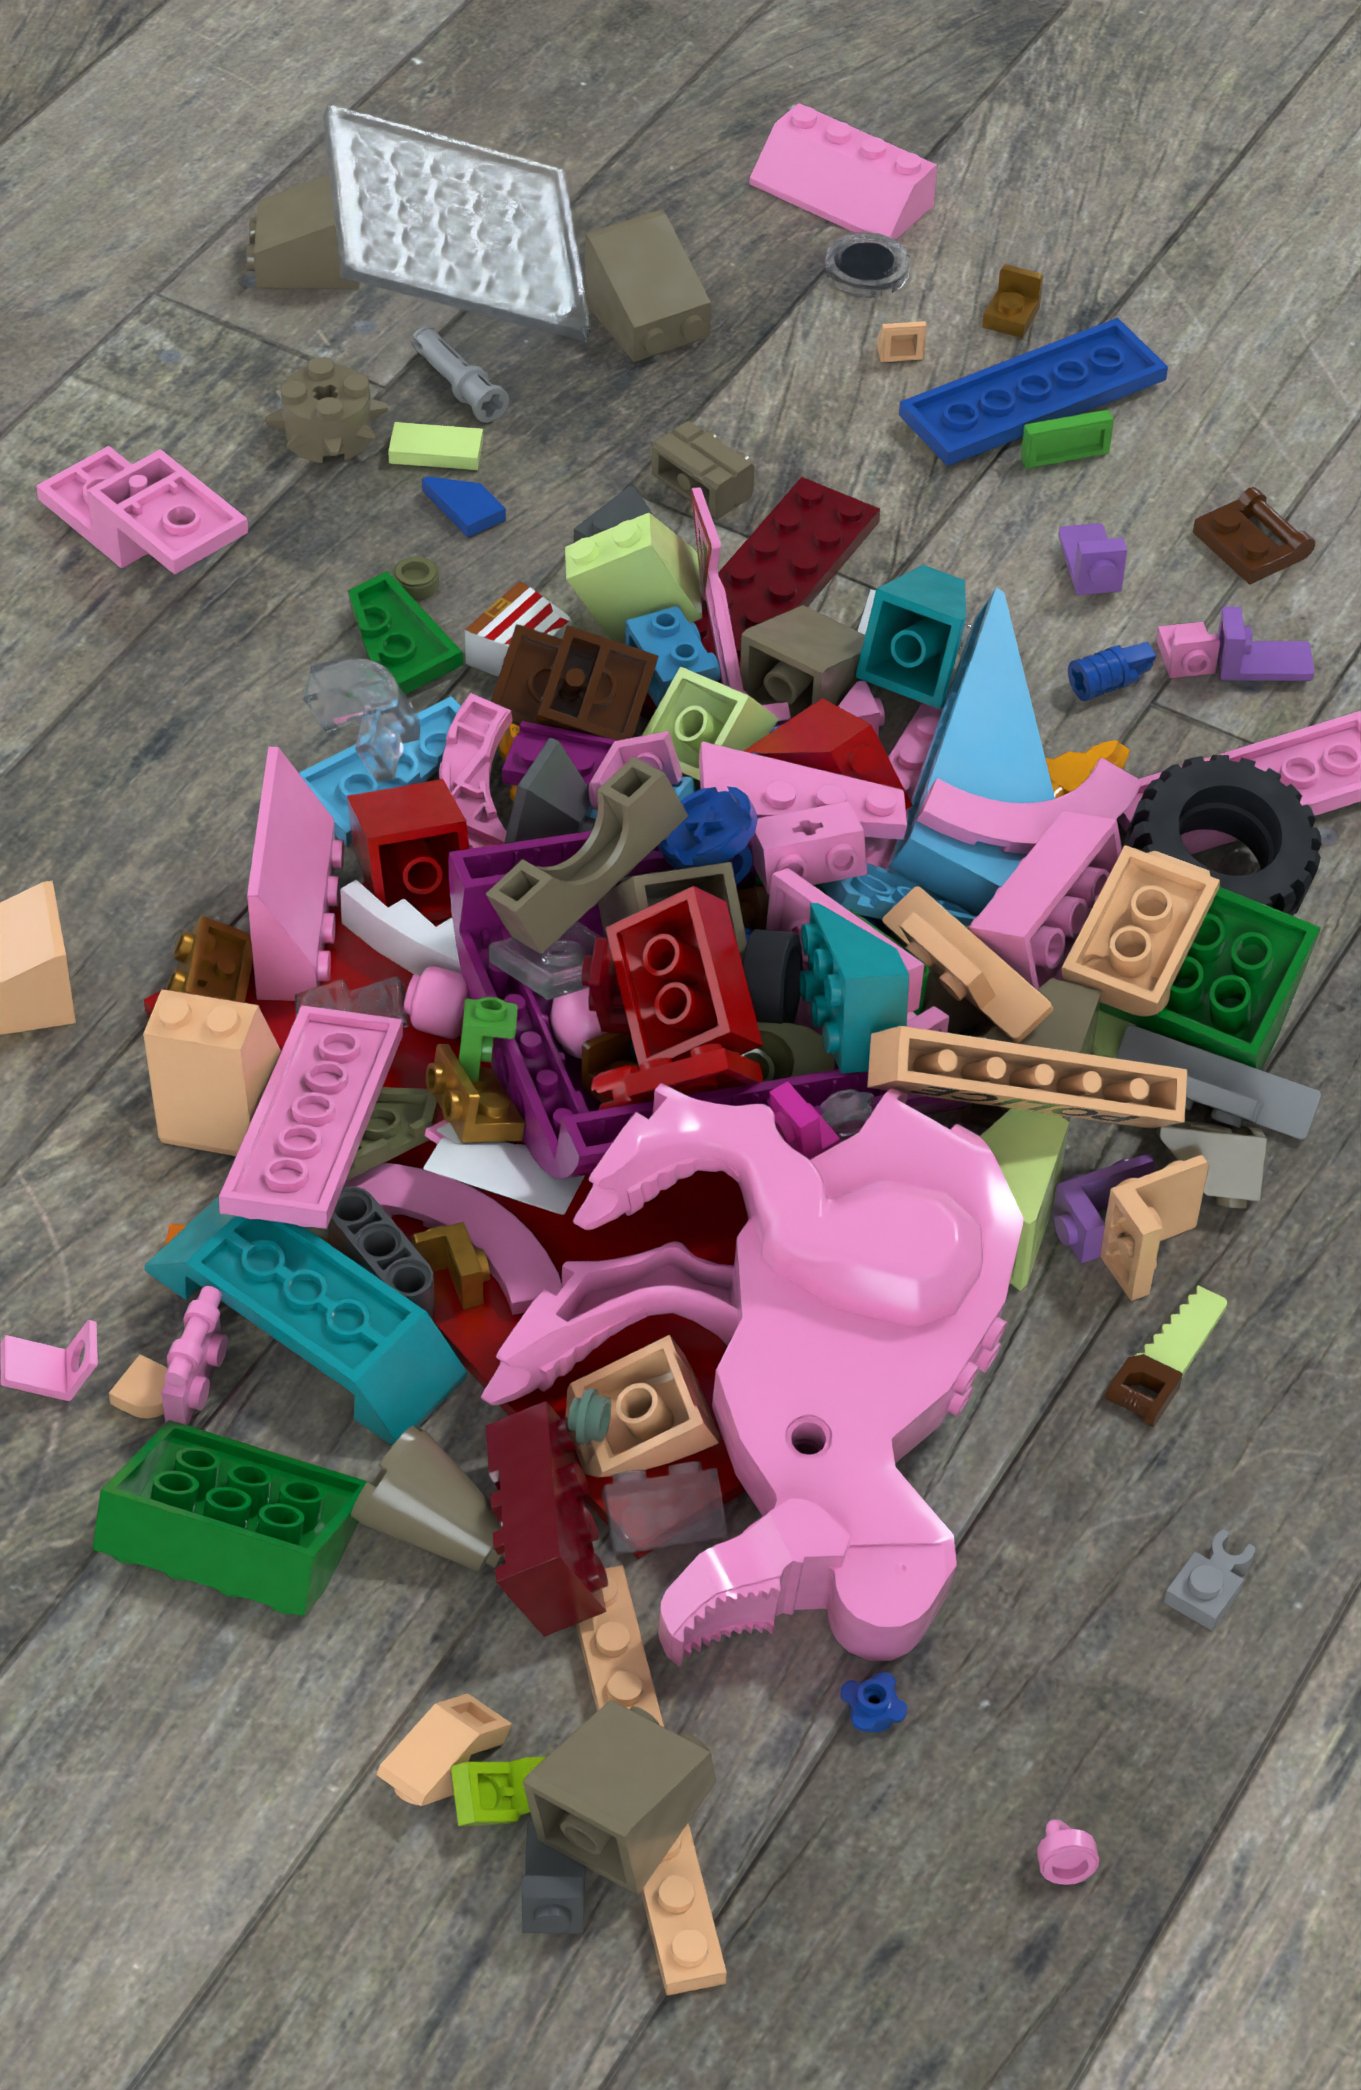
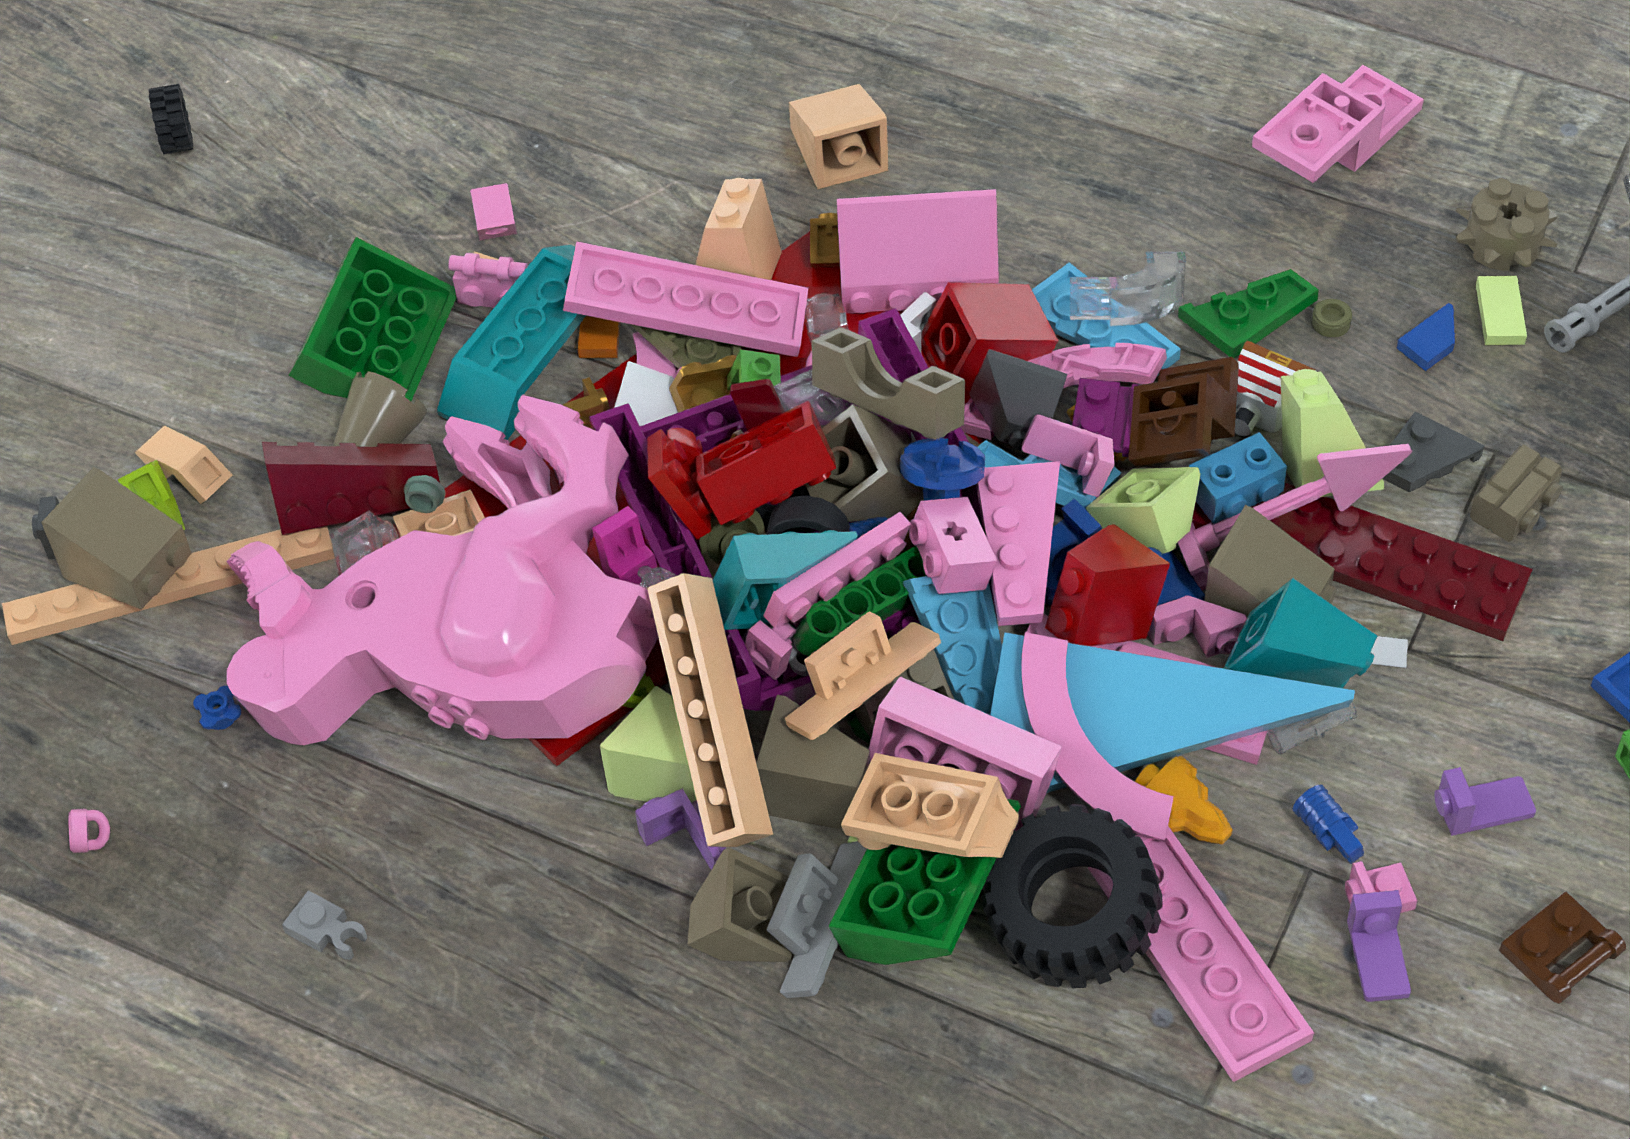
camera: 90 degrees right, 5 degrees up
(376, 1243) = (598, 356): dark grey beam -> none
(1144, 1214) = (637, 838): light nougat bracket -> none
(1167, 1357) = (540, 893): piece -> none

